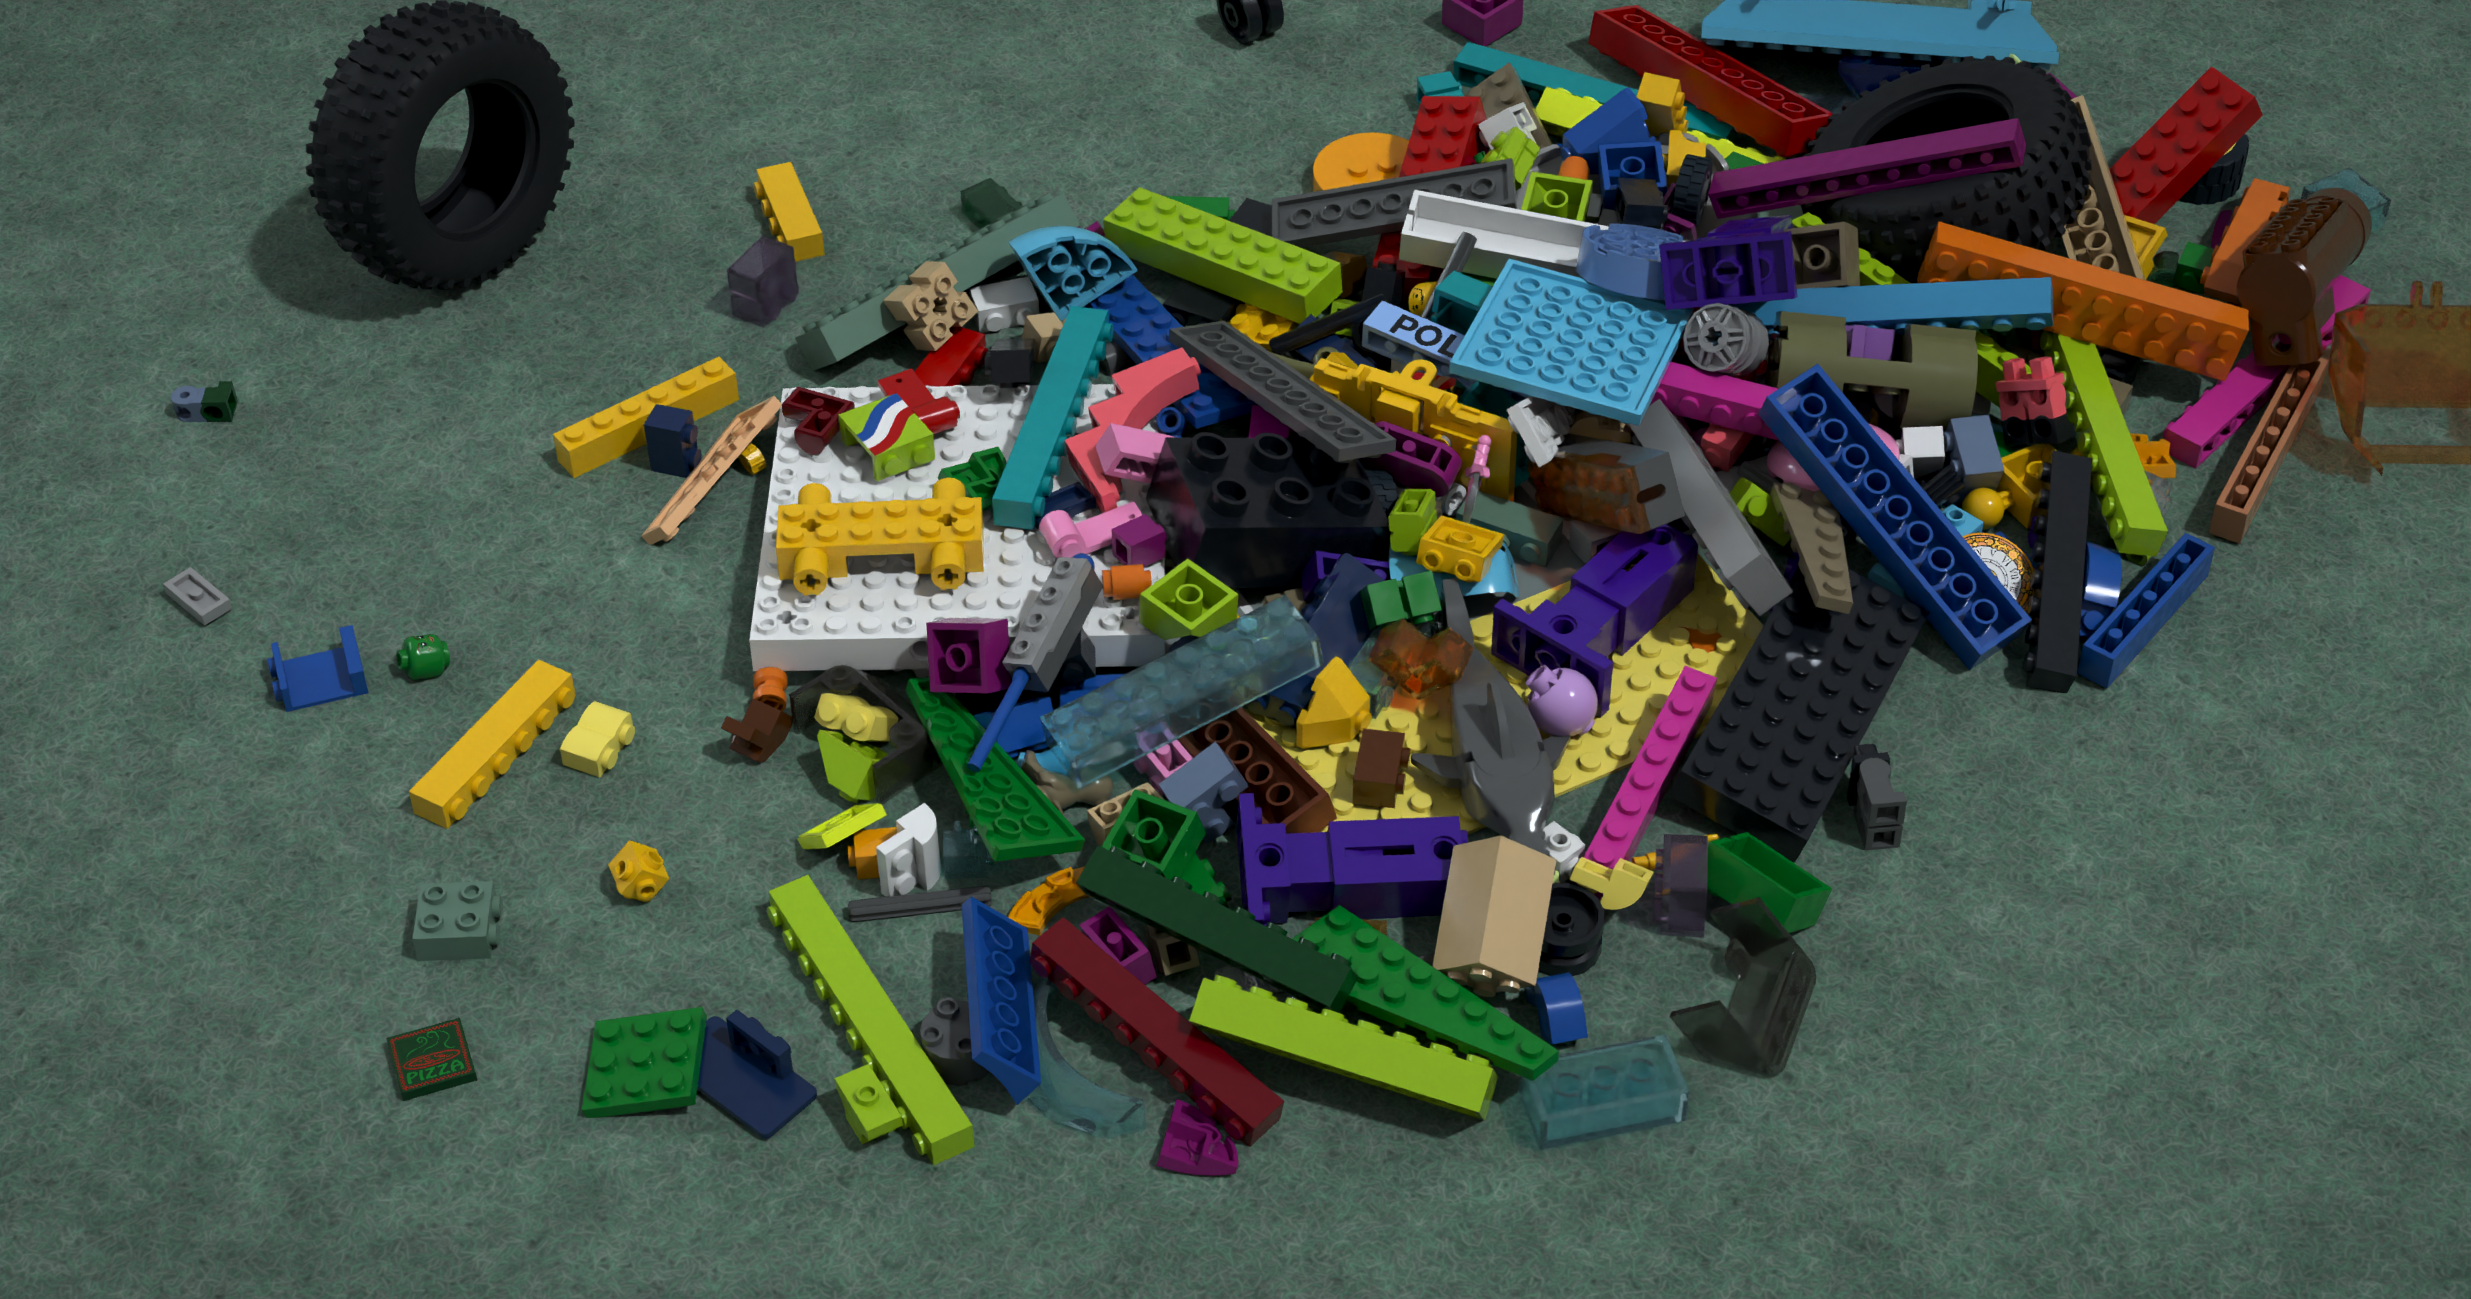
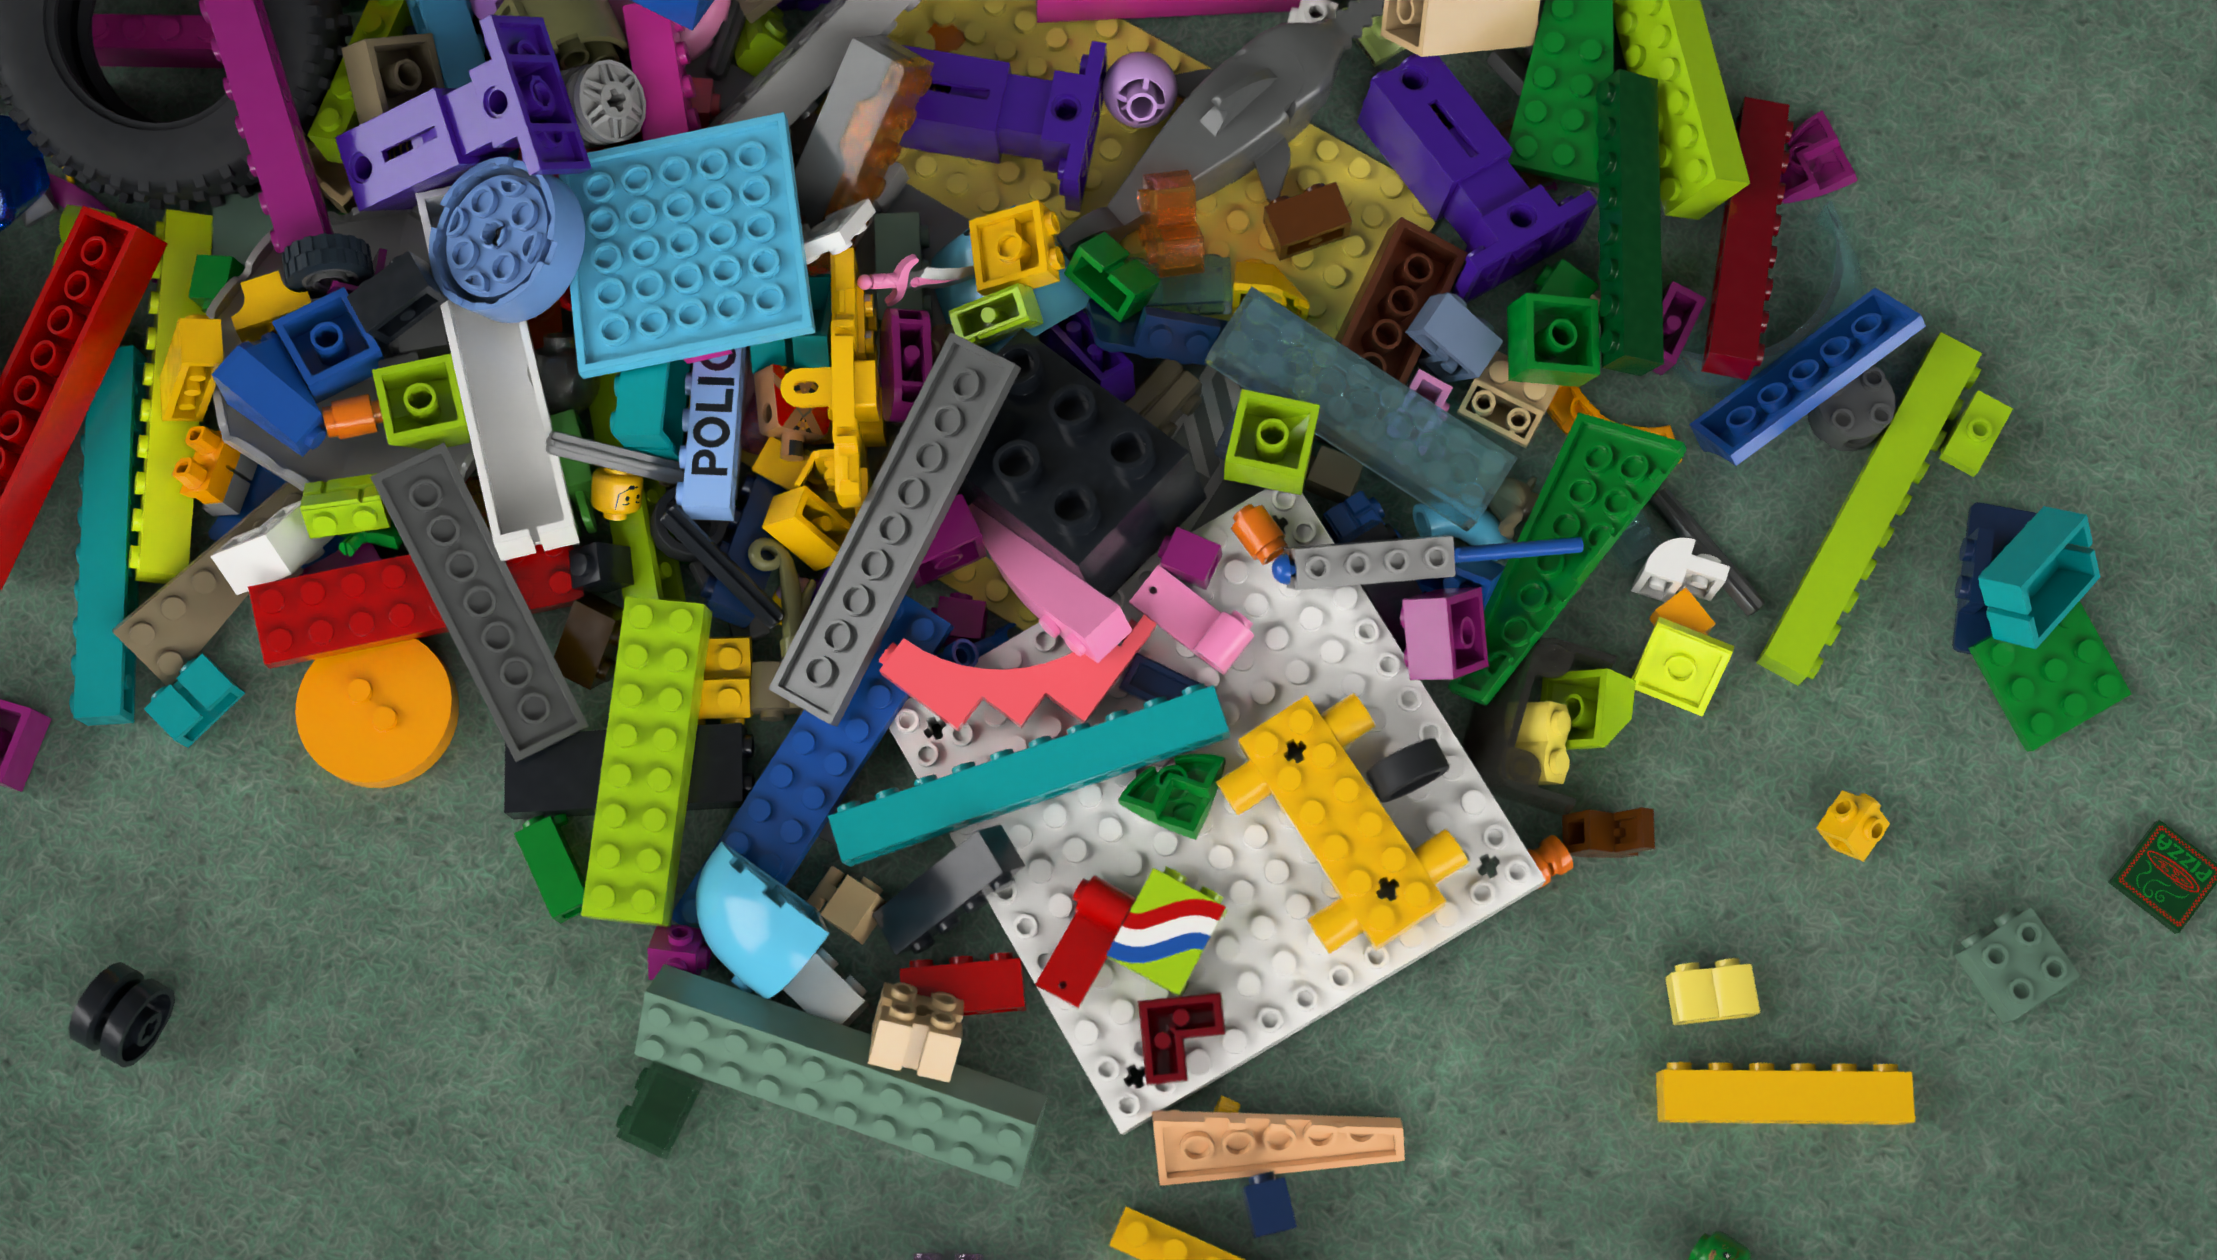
camera: 115 degrees left, 30 degrees up
(715, 1050) = (2039, 577): none -> teal piece
(883, 573) = (1407, 770): none -> black tyre

